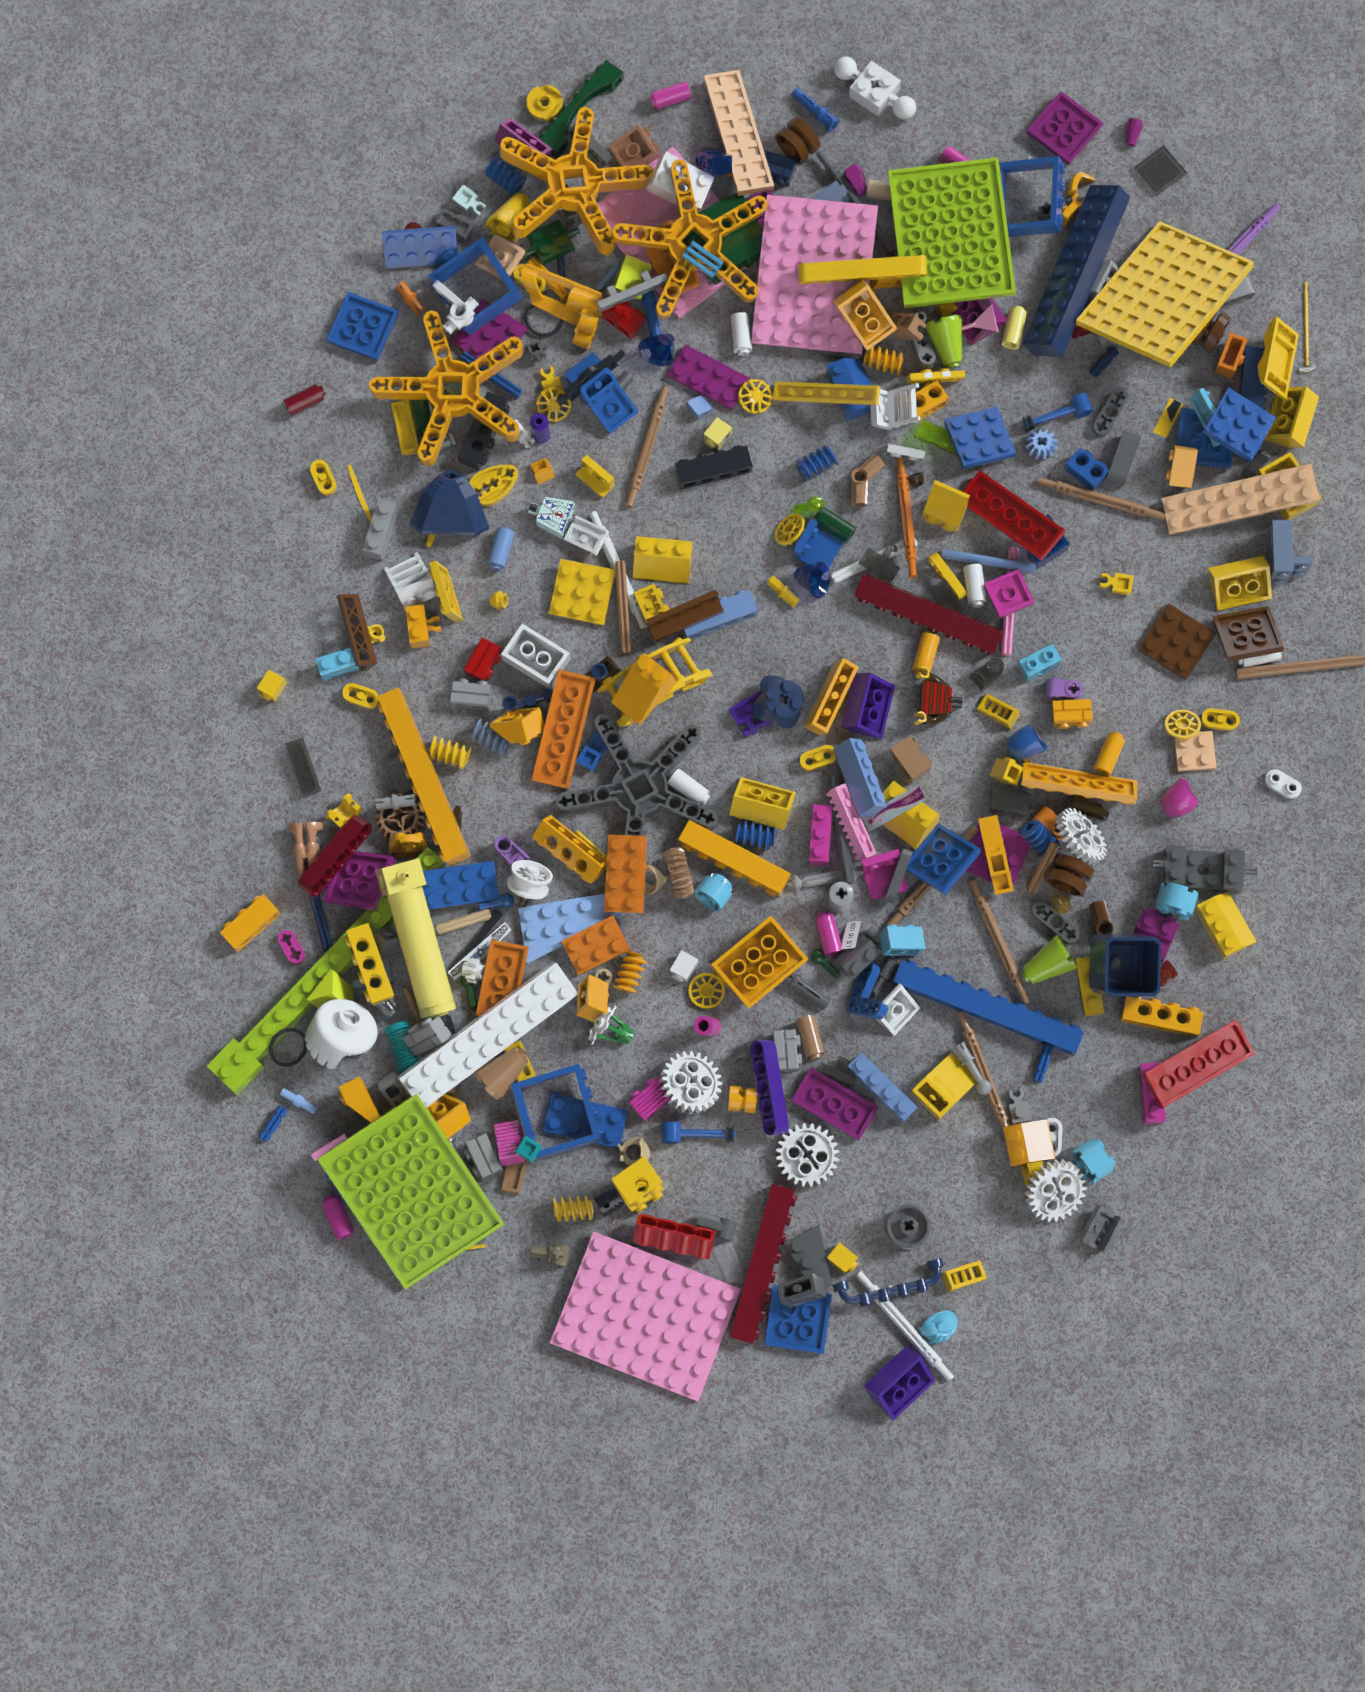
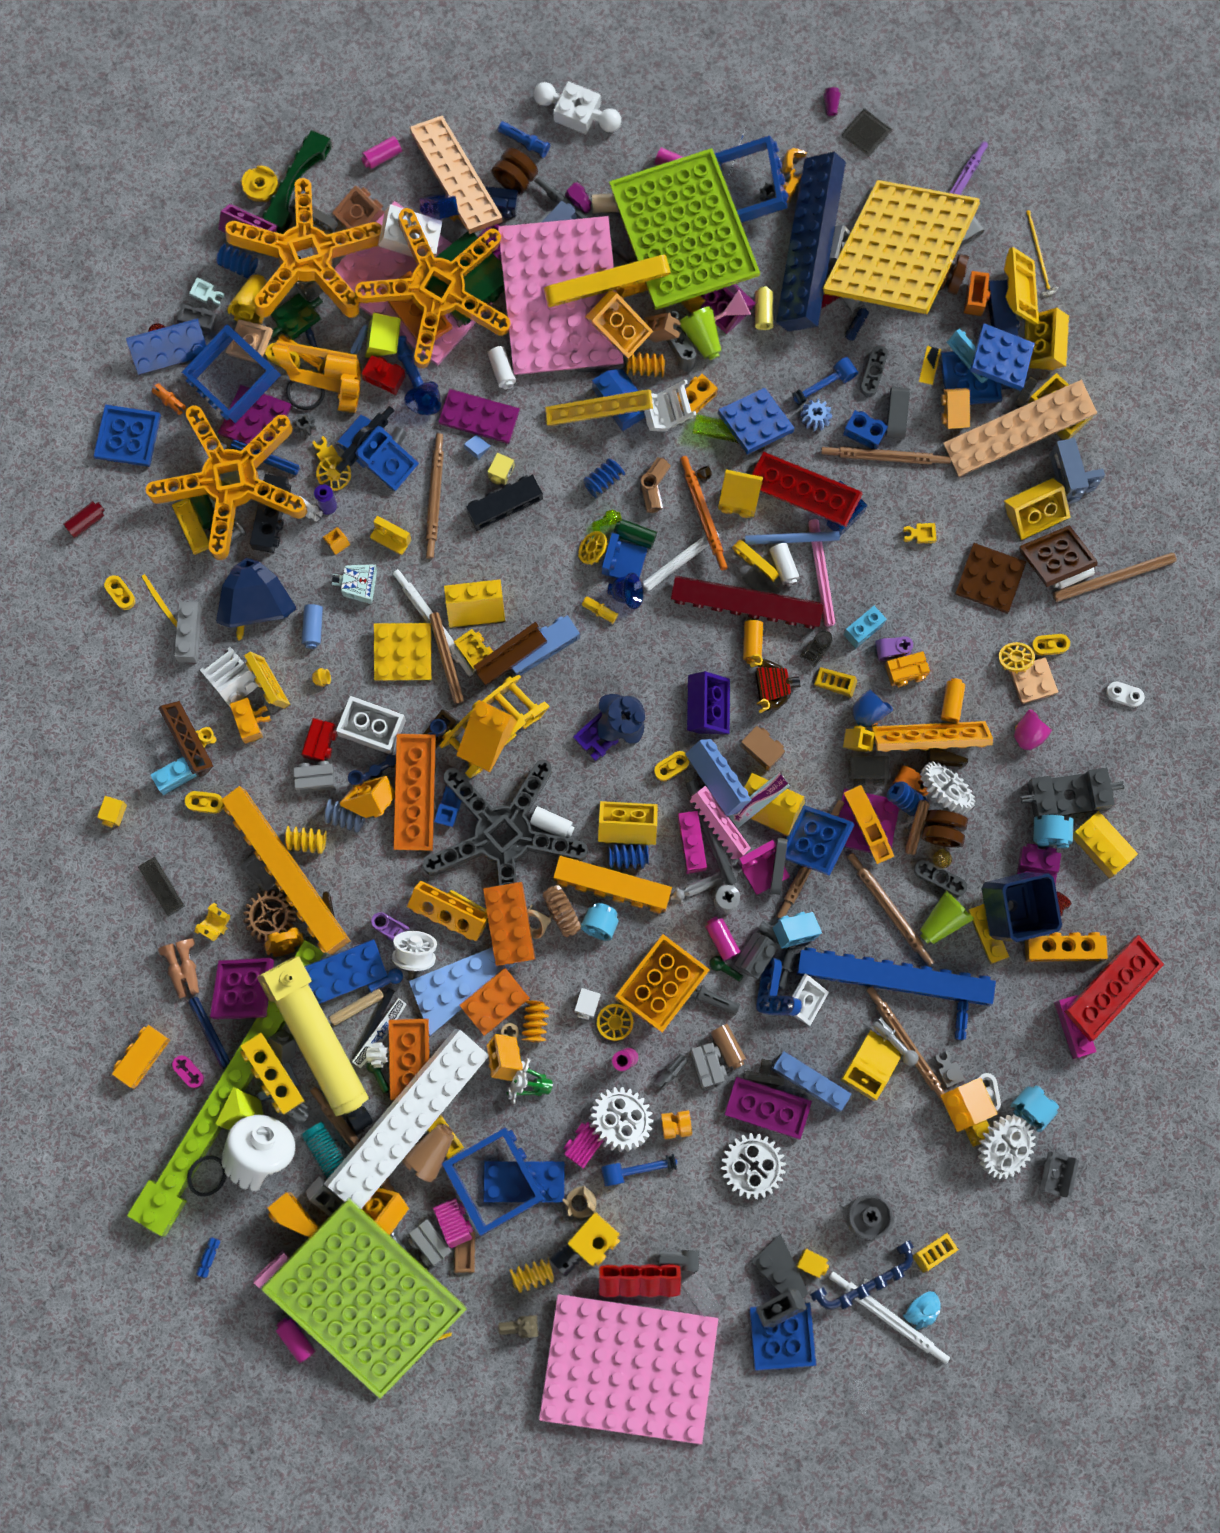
camera: 20 degrees left, 0 degrees up
(298, 1101) = (229, 1228): light blue bar -> none
(334, 856) = (212, 970): dark red beam -> none
(395, 802) = (262, 902): light grey pin -> none
(427, 1036) = (346, 1133): light grey brick -> none
(458, 307) = (217, 398): white piece -> none
(504, 483) = (291, 553): yellow piece -> none
(528, 1149) = (474, 1227): teal tile -> none
(586, 535) = (394, 595): white plate -> none
(633, 292) = (400, 338): light grey hinge -> none
(715, 268) = (453, 295): dark azure tile -> none
(755, 396) = (529, 425): yellow wheel -> none
(762, 1263) = (734, 1288): dark red brick -> none
(769, 1087) = (700, 1107): dark purple beam -> none
(831, 696) = (671, 703): light orange brick -> none
(851, 935) = (745, 938): white sticker -> none
(880, 564) = (688, 563): clear smoke plate -> none
(898, 451) = (679, 449): white plate -> none
(899, 1382) = (898, 1377): dark purple slope -> none
(943, 375) = (706, 368): yellow plate -> none
(1009, 593) = (820, 565): dark pink plate -> none
(1065, 128) = (767, 109): magenta plate -> none
(1100, 916) = (983, 864): reddish brown piece -> none

